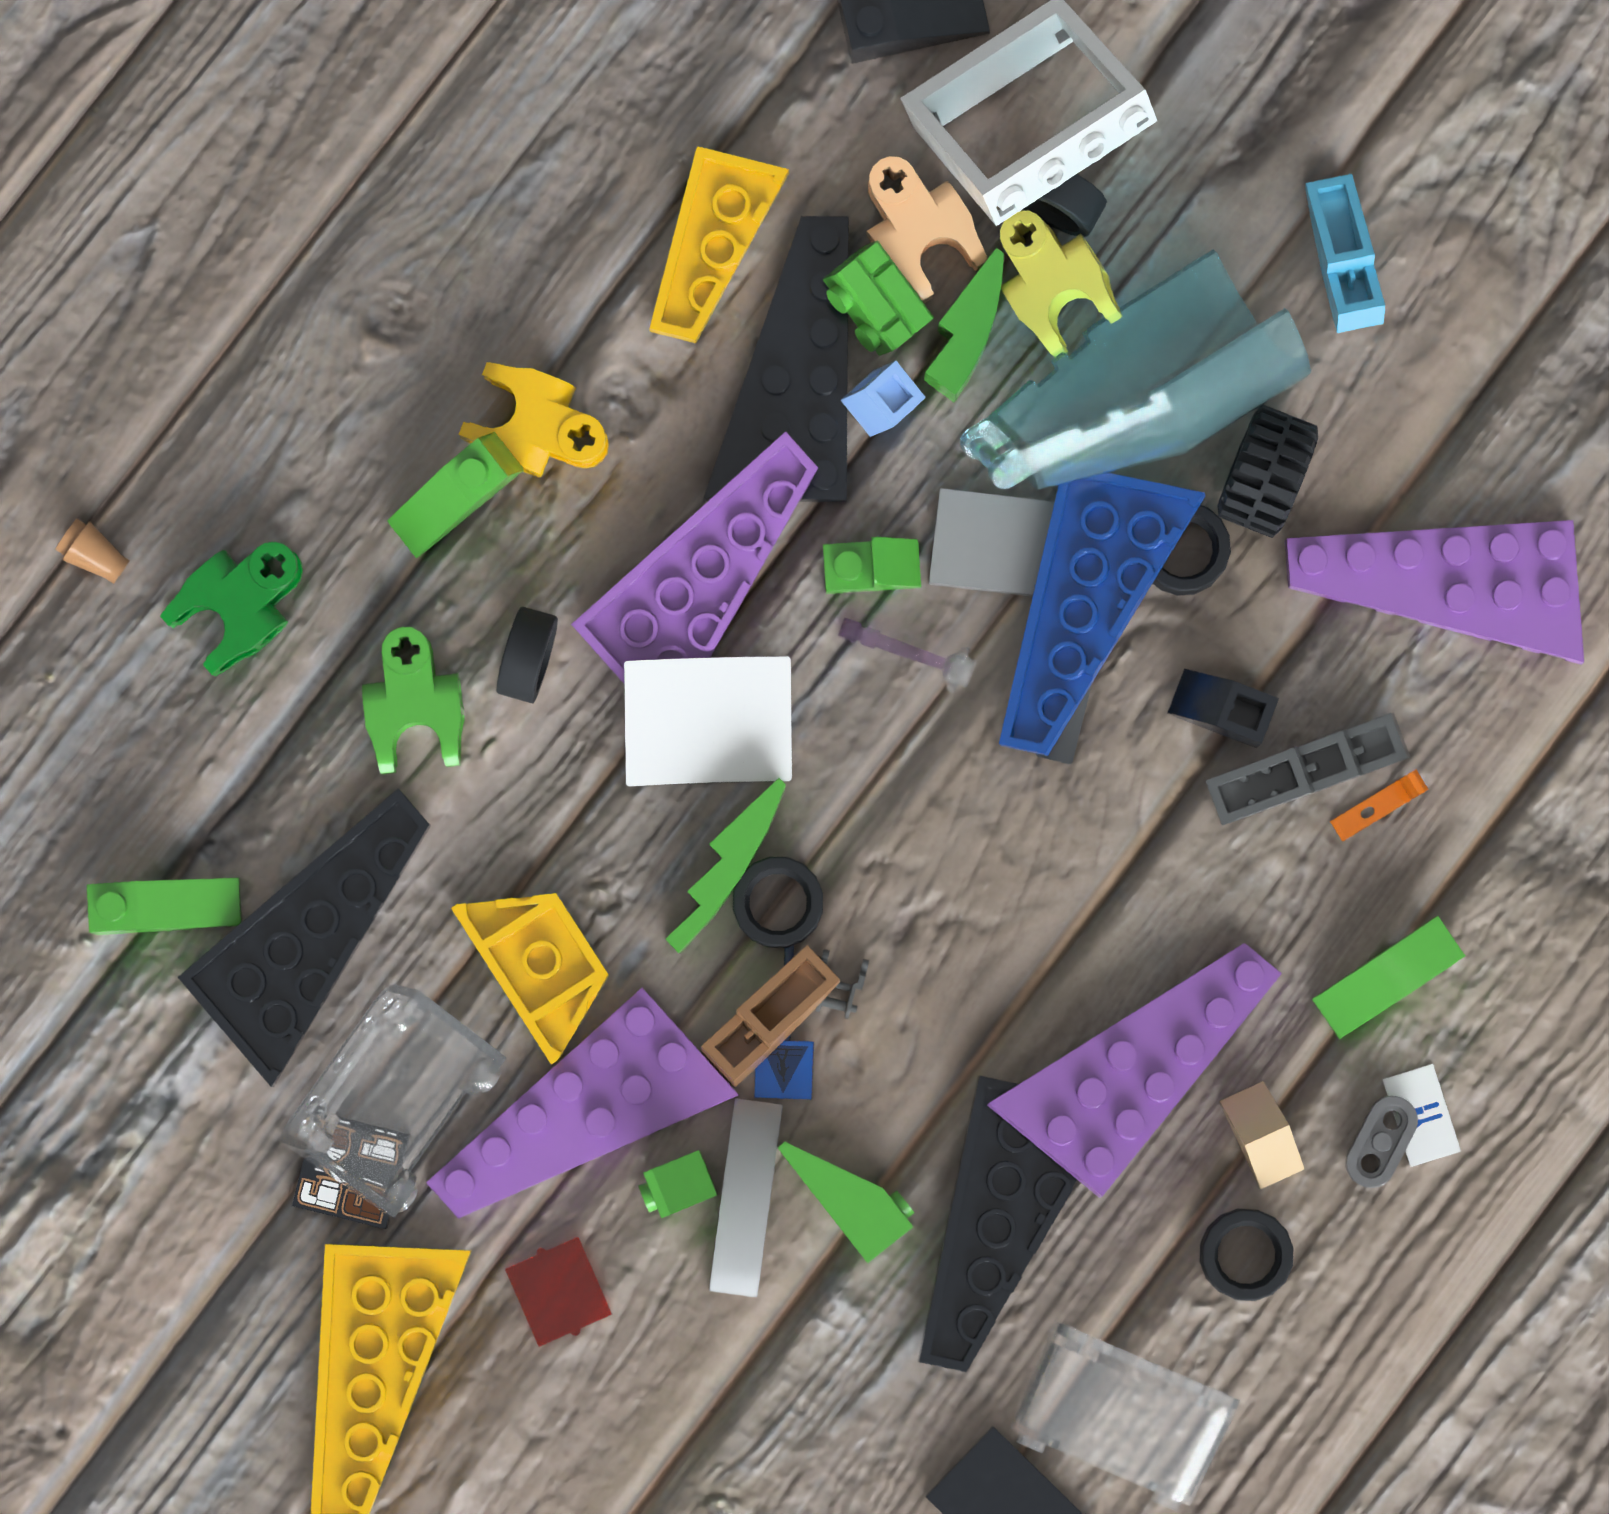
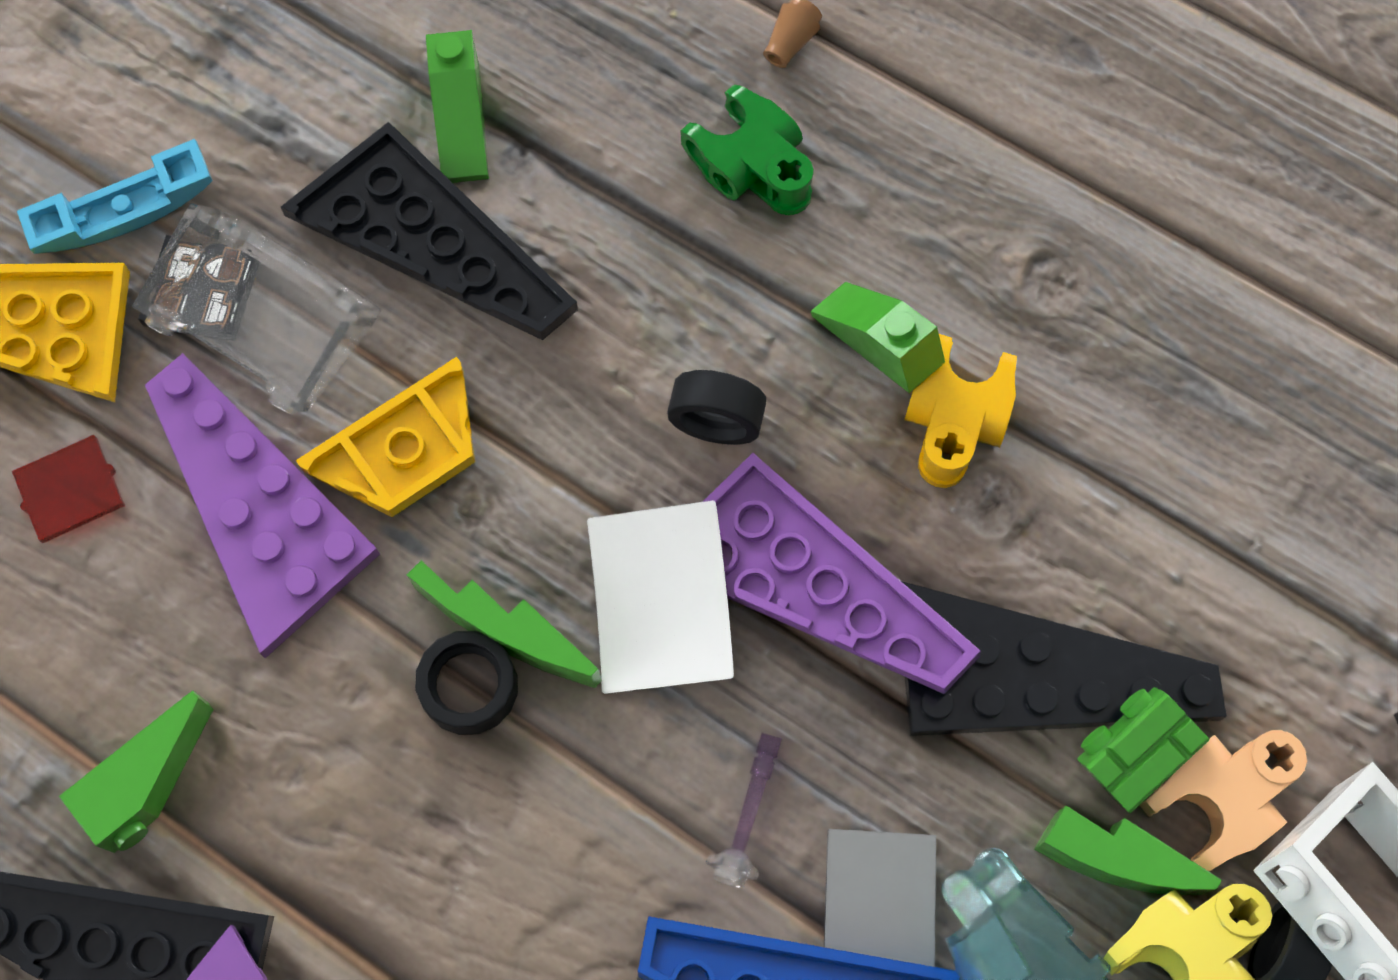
camera: 85 degrees right, 15 degrees down
(250, 1256) = (120, 207): none -> medium azure slope
(412, 698) = (669, 308): bright green piece -> none
(677, 1185) = (158, 588): bright green slope -> none
(714, 229) = (1189, 575): yellow wing -> none
(745, 1197) = (153, 666): light grey slope -> none
(769, 1016) = (341, 678): medium nougat slope -> none
(789, 1068) = (294, 702): piece -> none
(840, 1004) = (385, 739): dark grey piece -> none
(872, 565) = (842, 766): bright green slope -> none
(883, 398) = (1030, 761): light blue brick -> none

